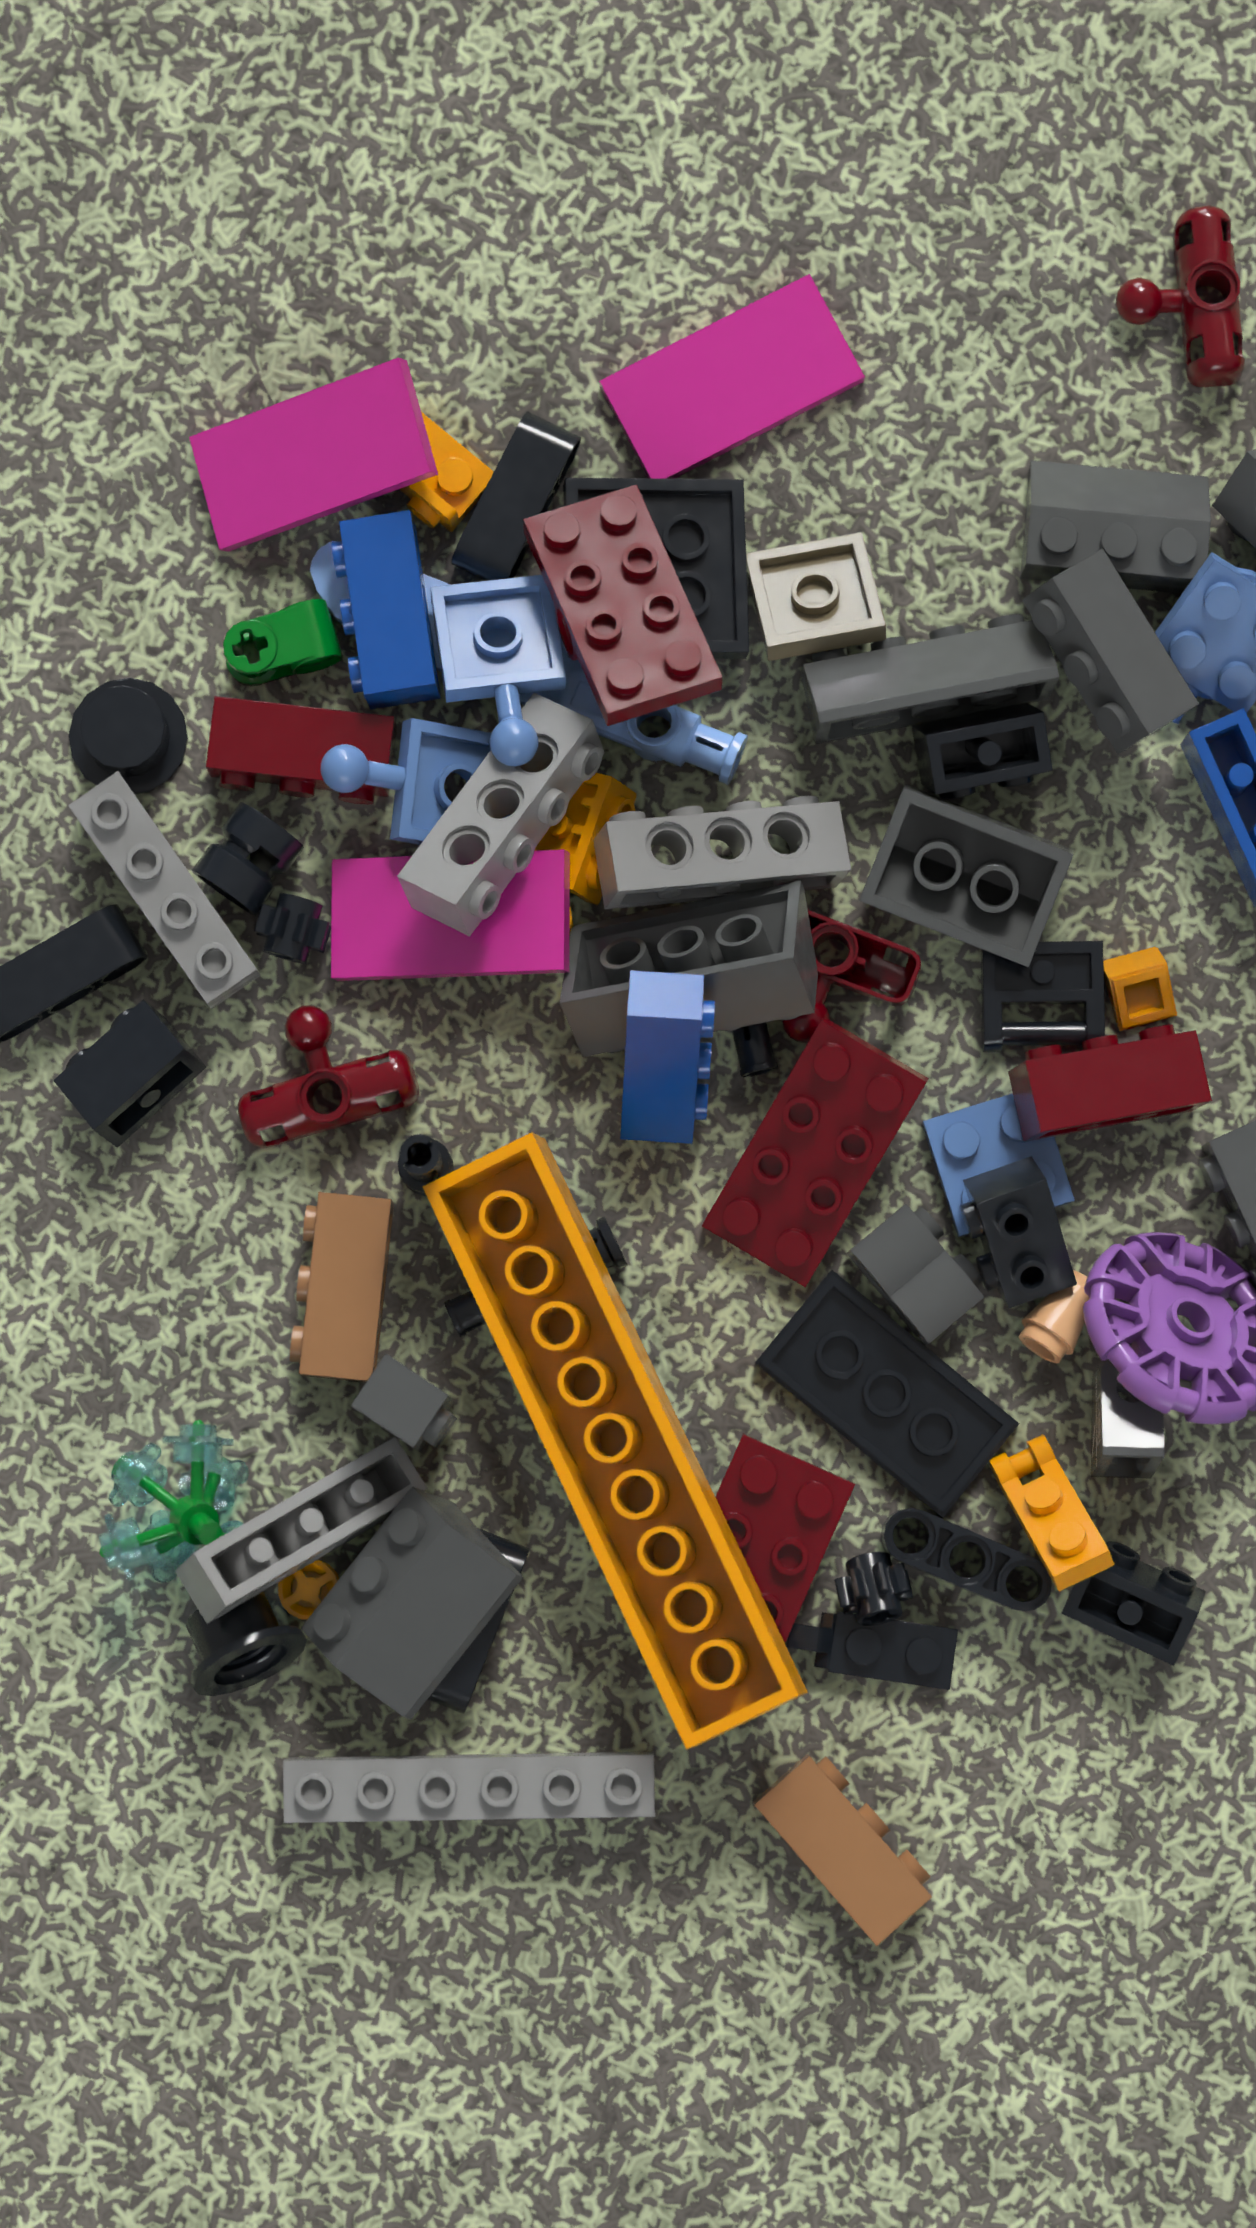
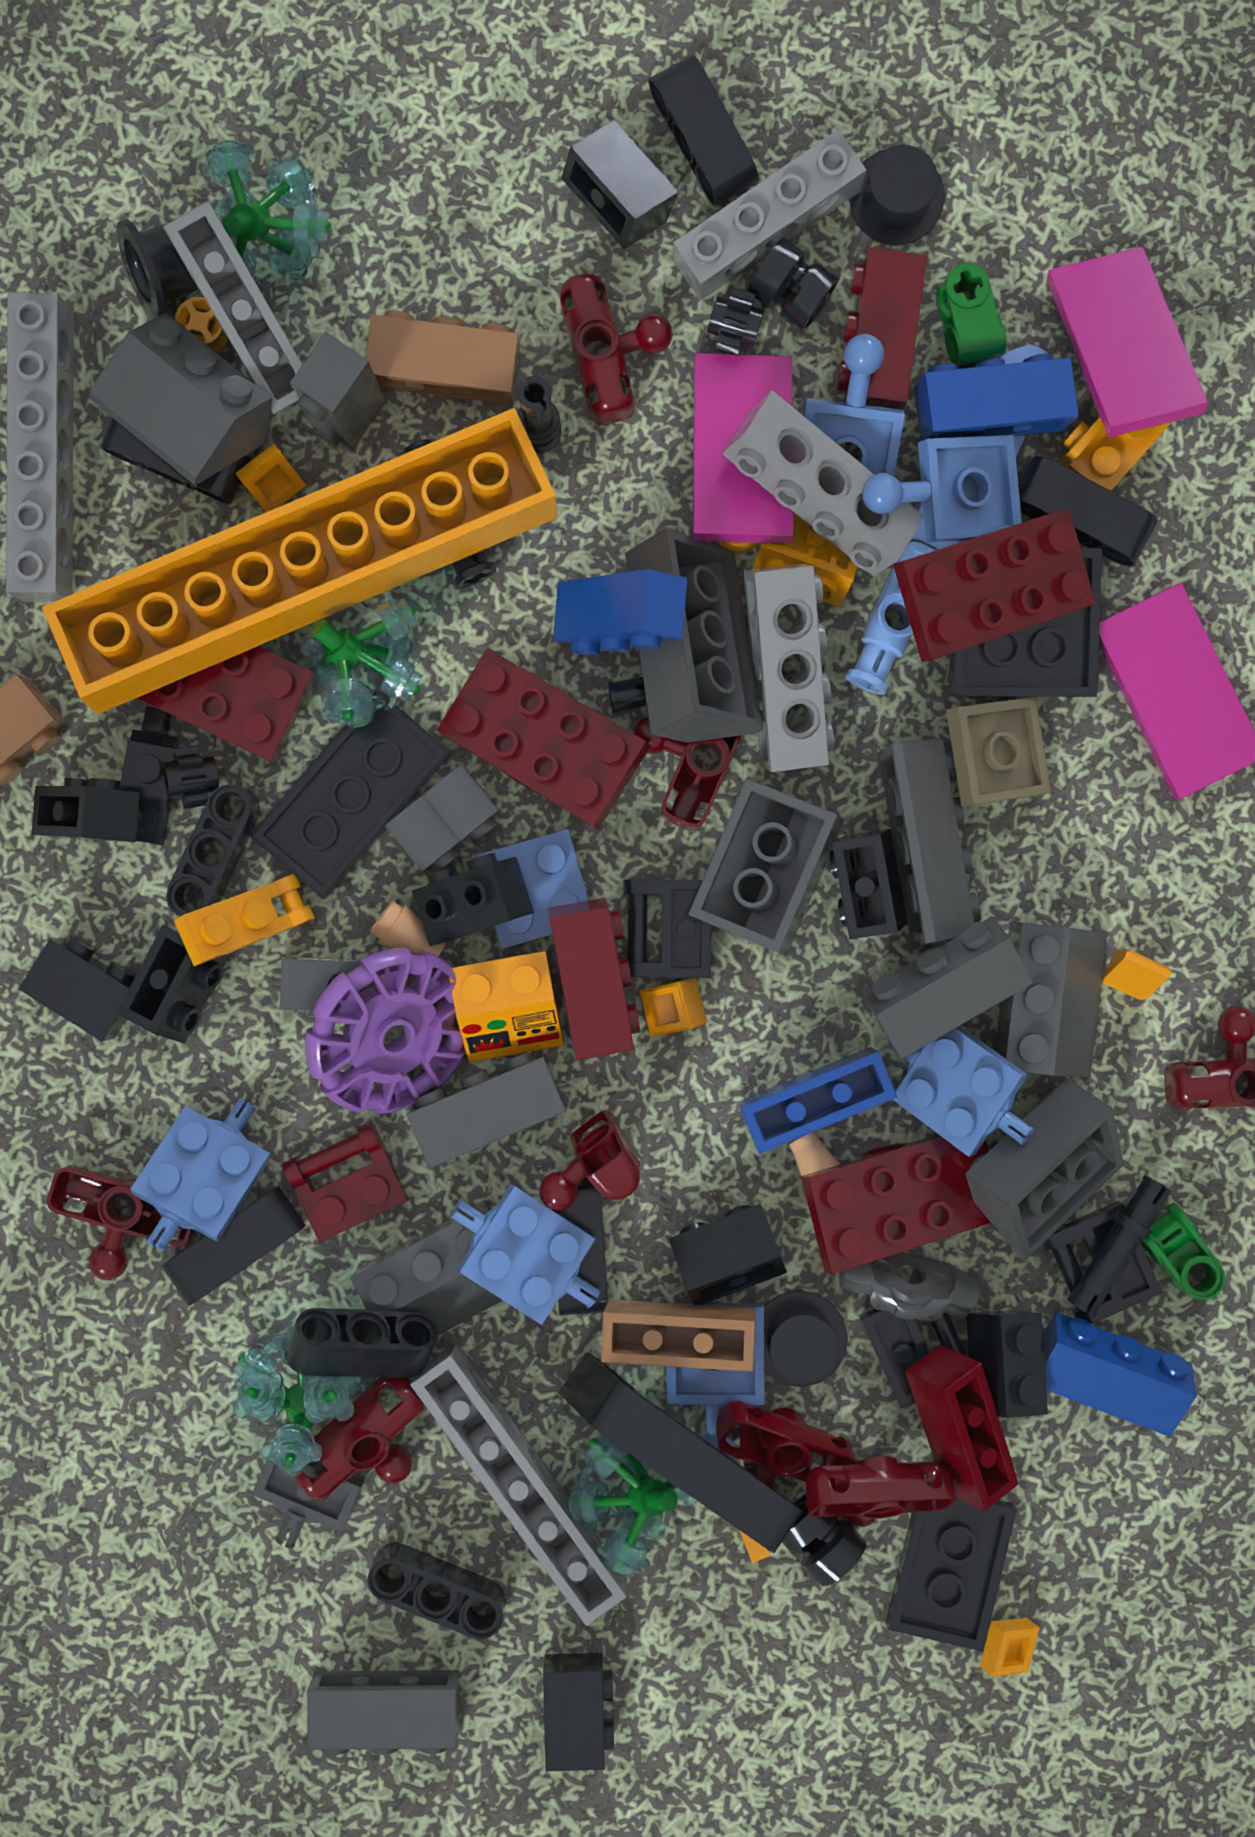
camera: 90 degrees right, 5 degrees up
(499, 1498) = (270, 478): none -> light orange plate
(713, 1355) = (384, 652): none -> clear light blue plant
(925, 1712) = (86, 811): none -> black brick
(1081, 426) = (1135, 974): none -> light orange slope
(1139, 1719) = (79, 986): none -> black brick
(1144, 1189) = (507, 1006): none -> light orange slope

